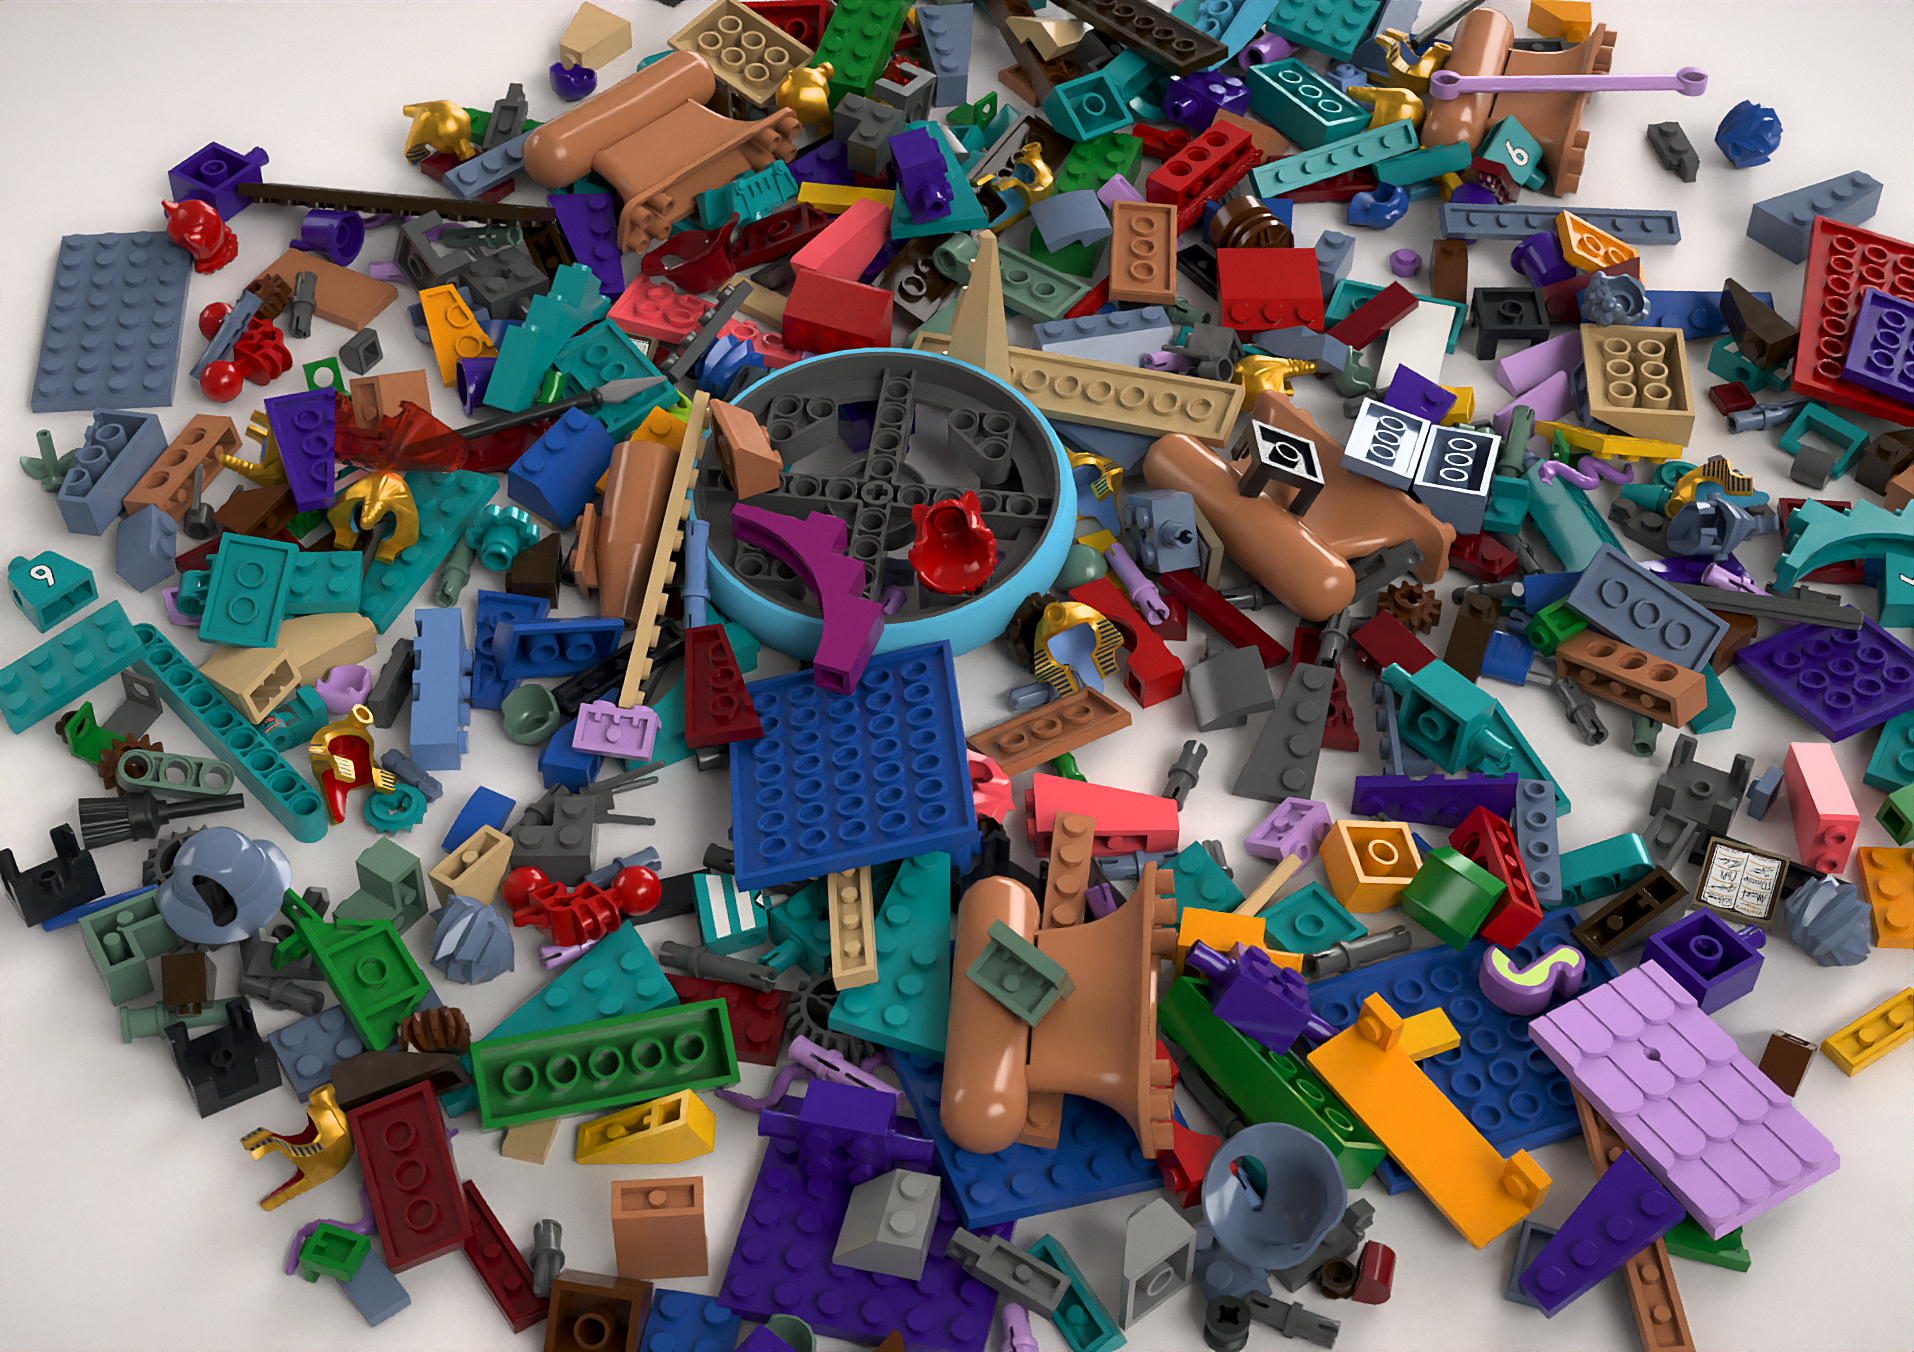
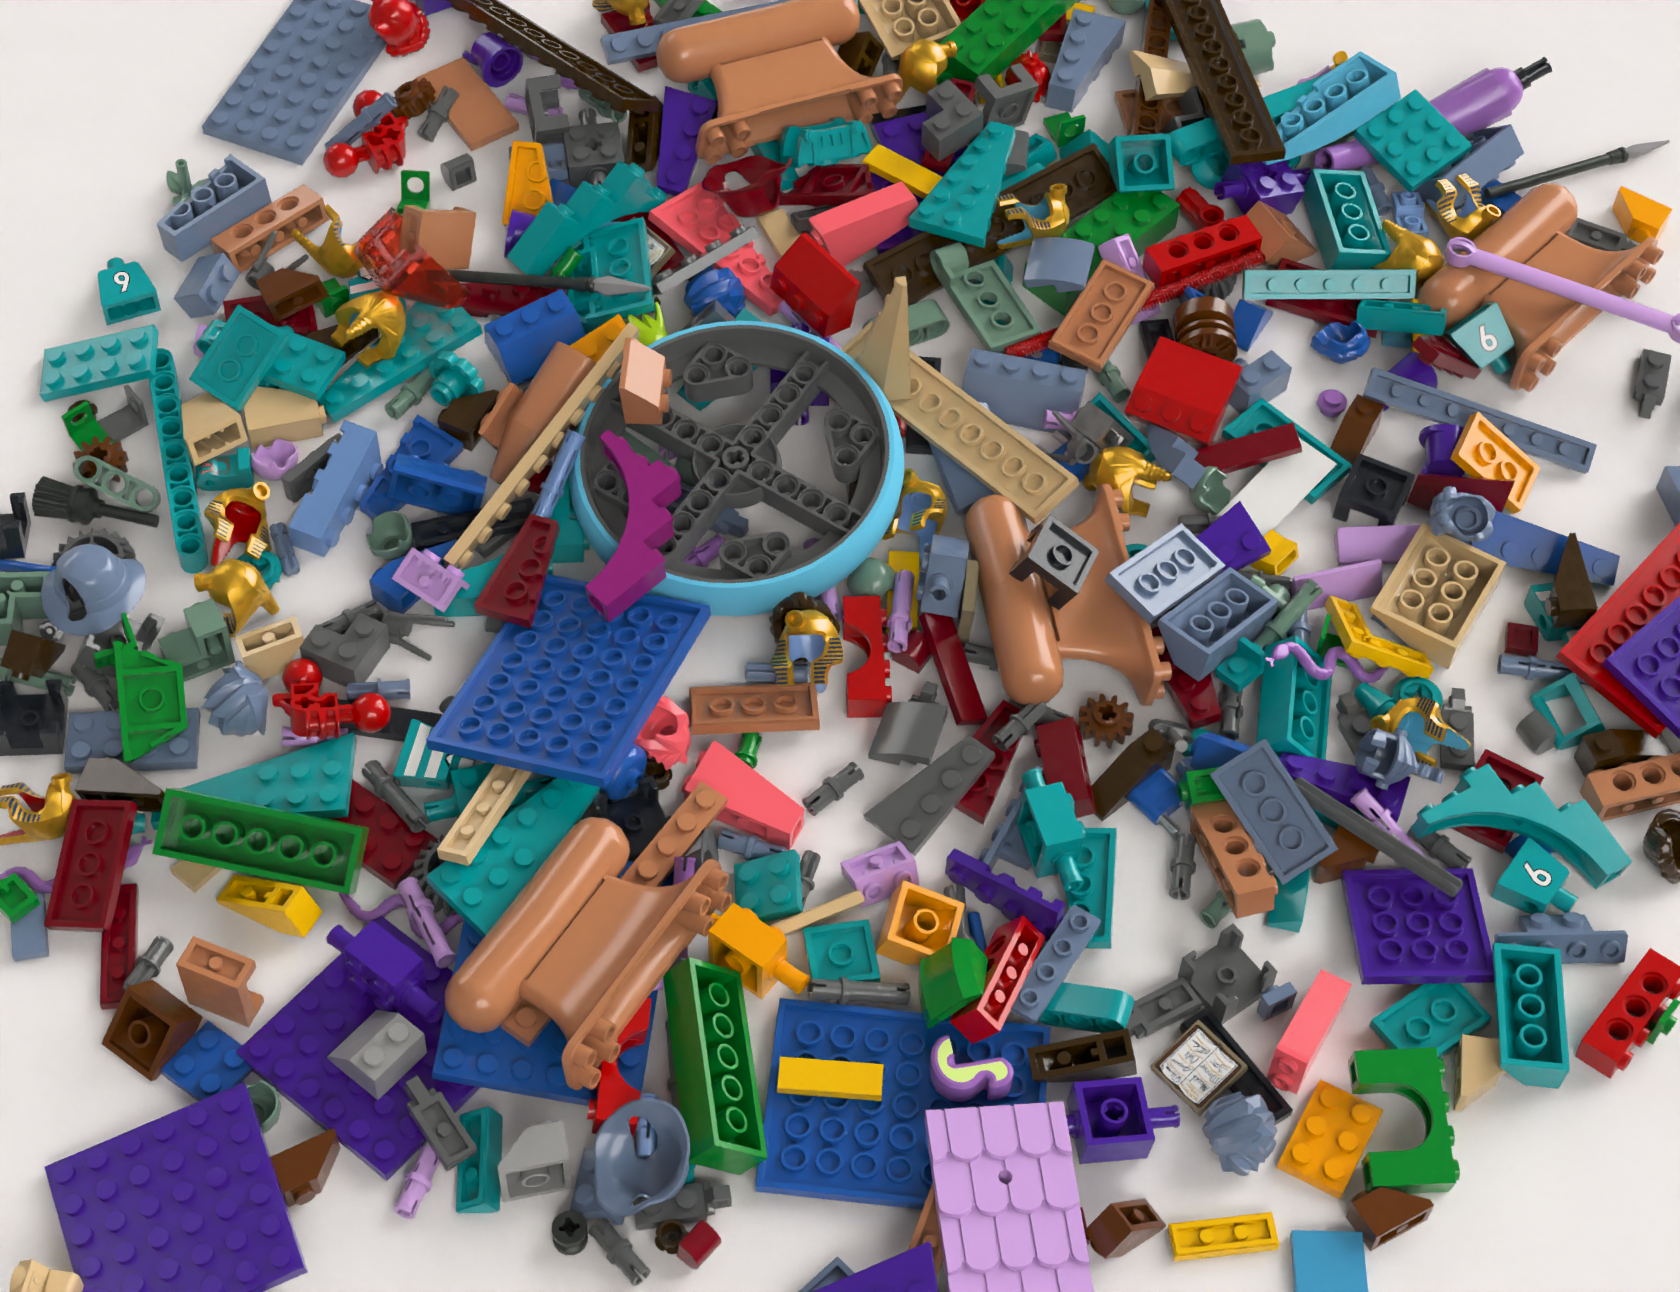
camera: 25 degrees right, 10 degrees up
(306, 444) = (346, 248): dark purple wing -> none
(401, 817) = (240, 589): none -> pearl gold piece
(435, 1032) = (166, 766): reddish brown gear -> none
(481, 809) = (306, 605): blue slope -> none
(921, 175) = (945, 183): dark purple brick -> none
(952, 545) = (749, 529): red hair -> none
(1019, 975) = (553, 909): sand green bracket -> none
(1259, 996) = (740, 999): dark purple brick -> none
(1385, 566) = (1096, 679): dark grey hinge -> none
(1425, 1130) = (801, 1155): light orange bracket -> none

